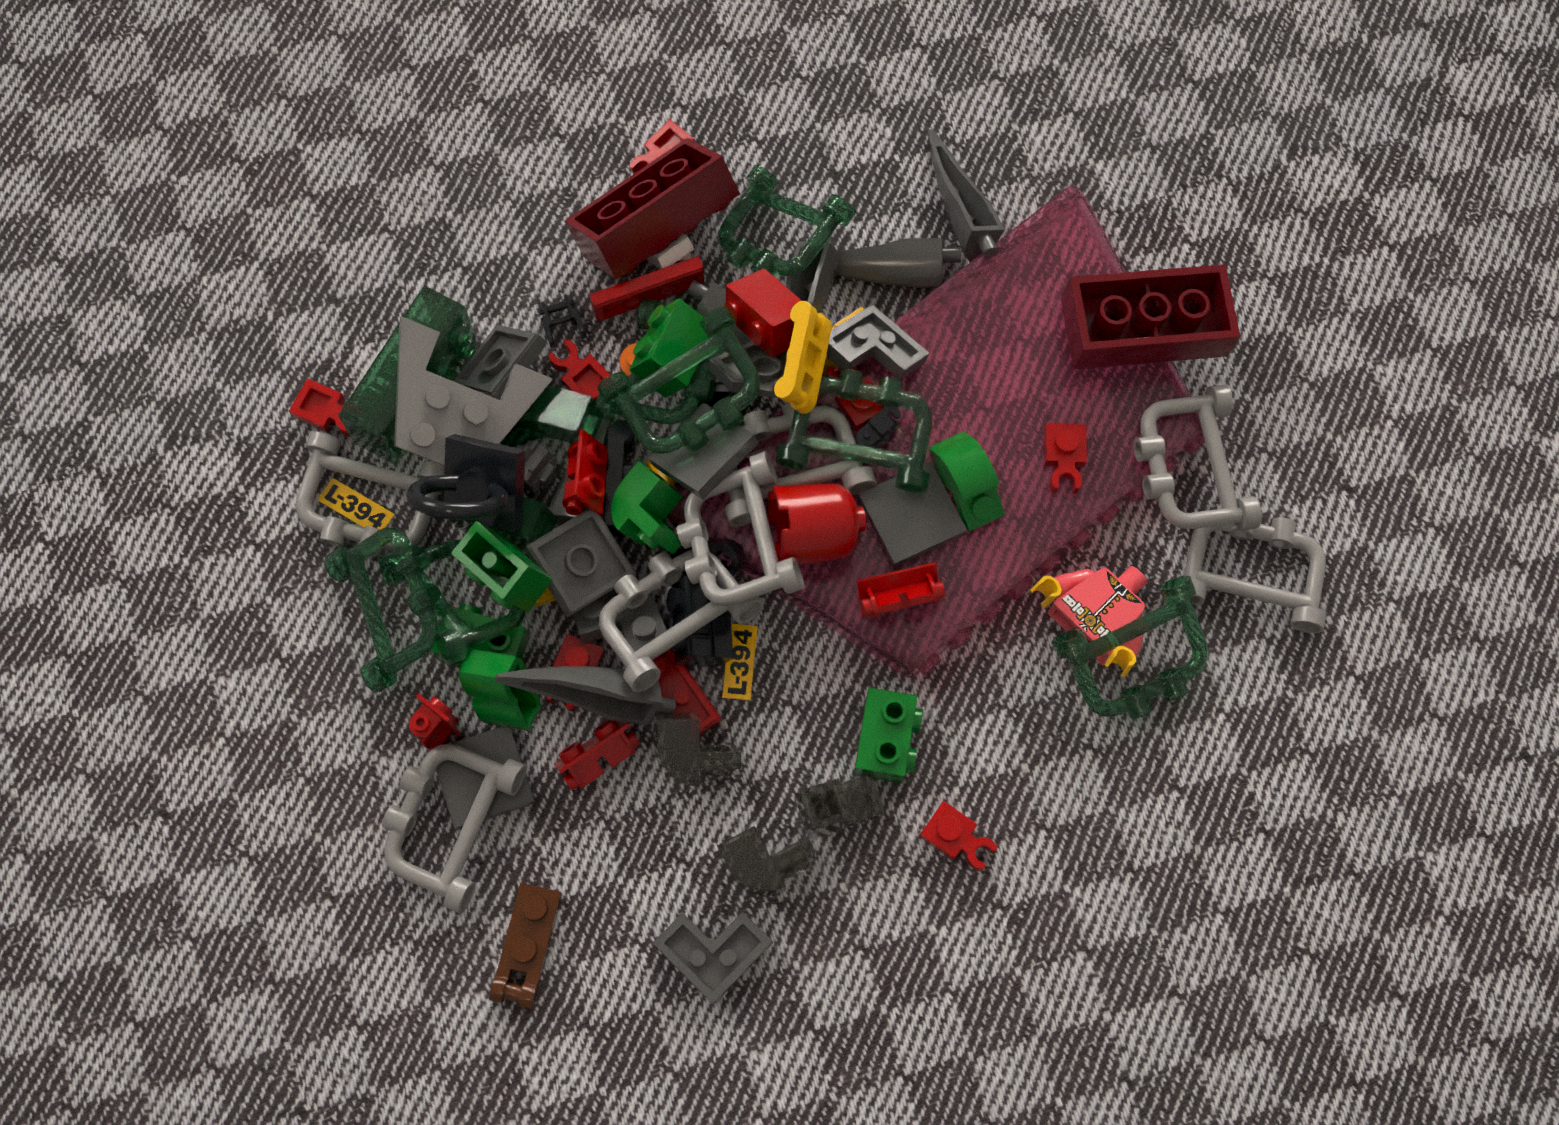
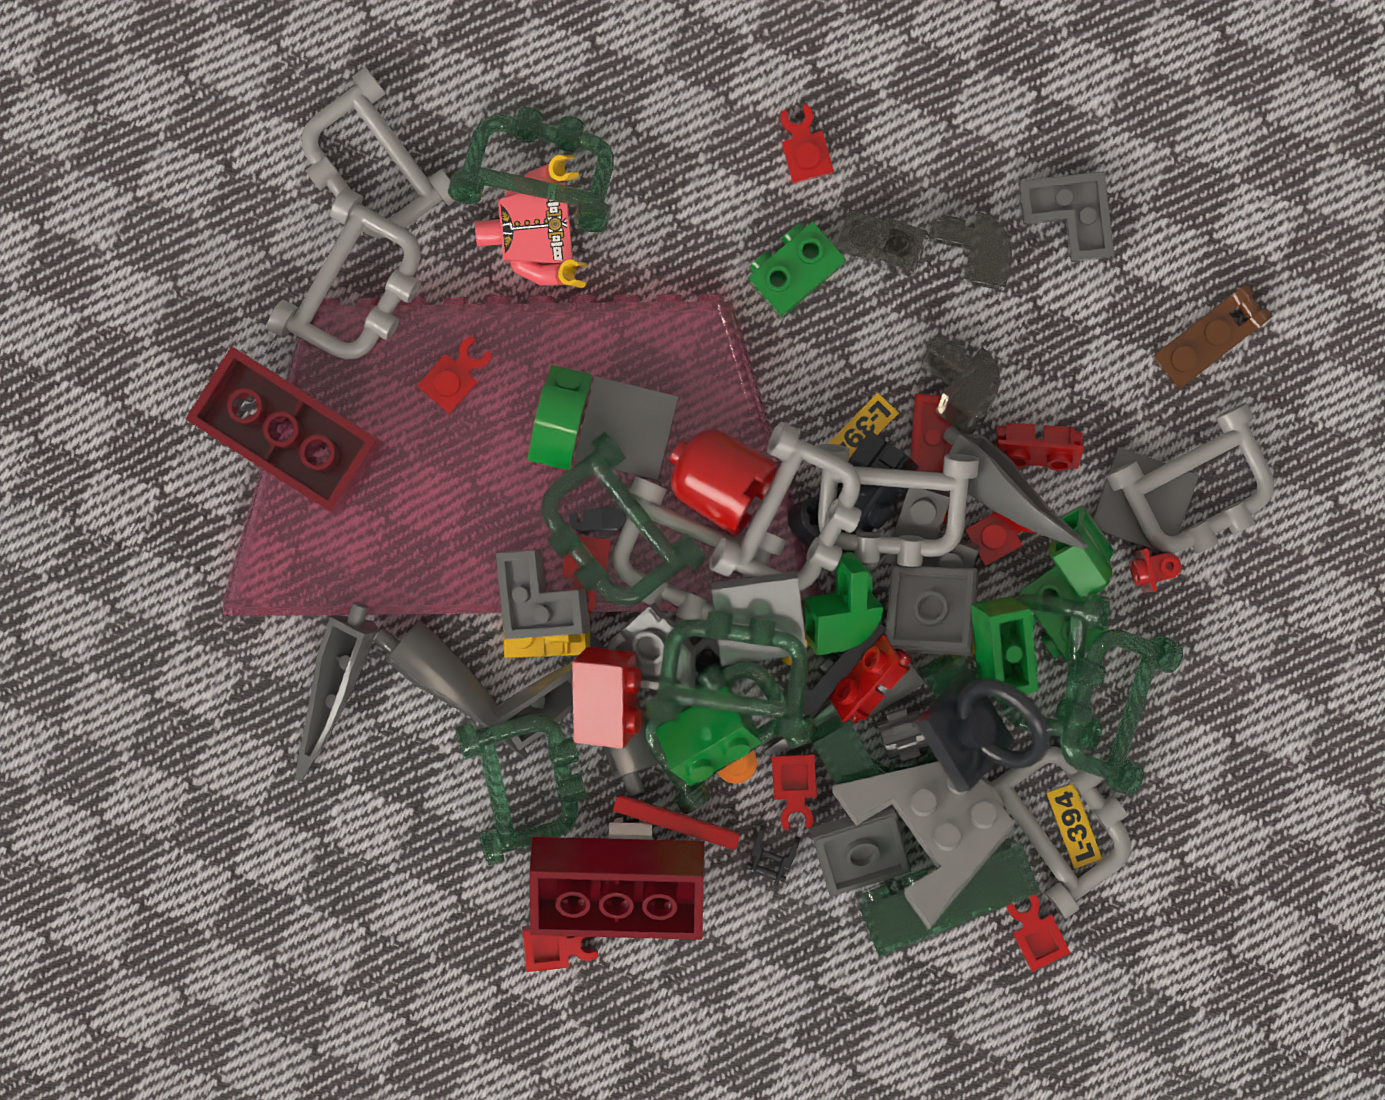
camera: 140 degrees left, 15 degrees up
(804, 358) = (615, 620): yellow plate -> none
(899, 590) = (678, 361): red hinge -> none

